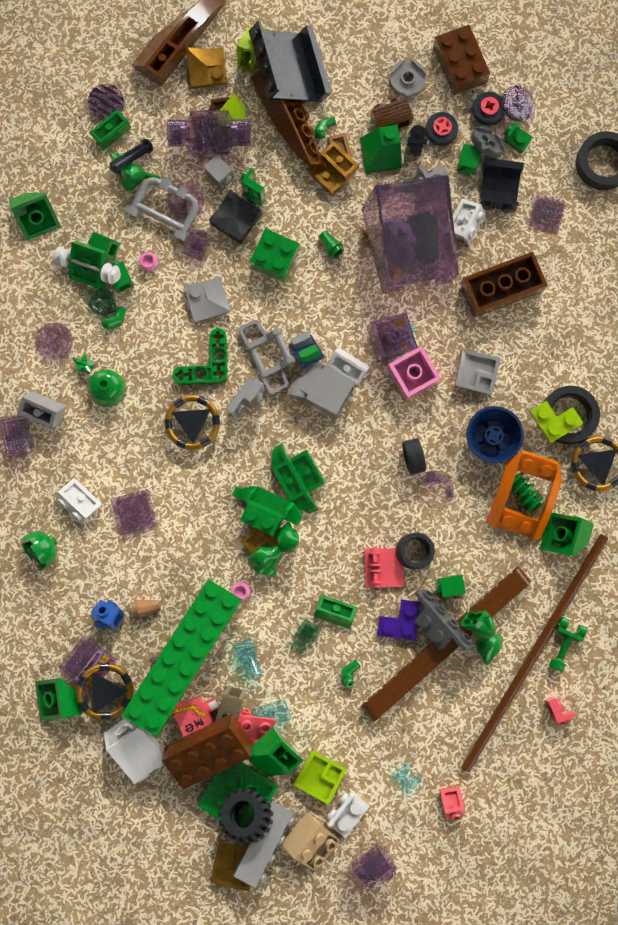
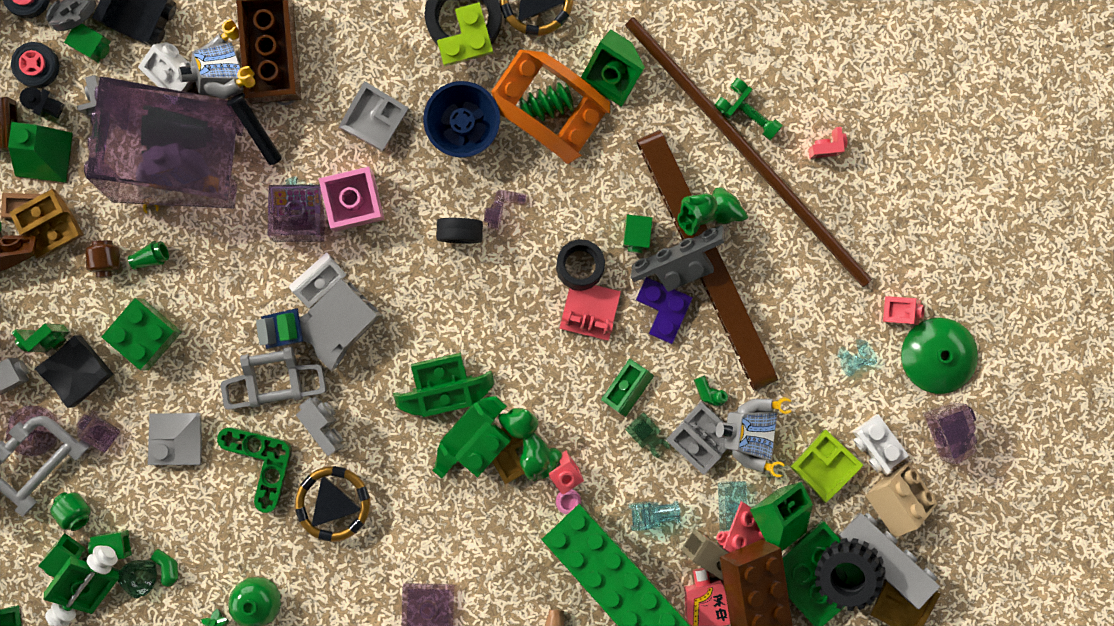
camera: 75 degrees left, 5 degrees up
(136, 242) = (70, 511): none -> green head
(148, 261) = (101, 502): bright pink plate -> none
(260, 584) = (567, 474): none -> coral bracket
(314, 677) = (697, 438): none -> light grey slope
(320, 213) = (102, 258): none -> reddish brown head
(328, 713) = (752, 433): none -> torso
(420, 828) = (923, 359): none -> green dish
(443, 291) = (254, 129): none -> black axle
(478, 253) = (217, 66): none -> torso

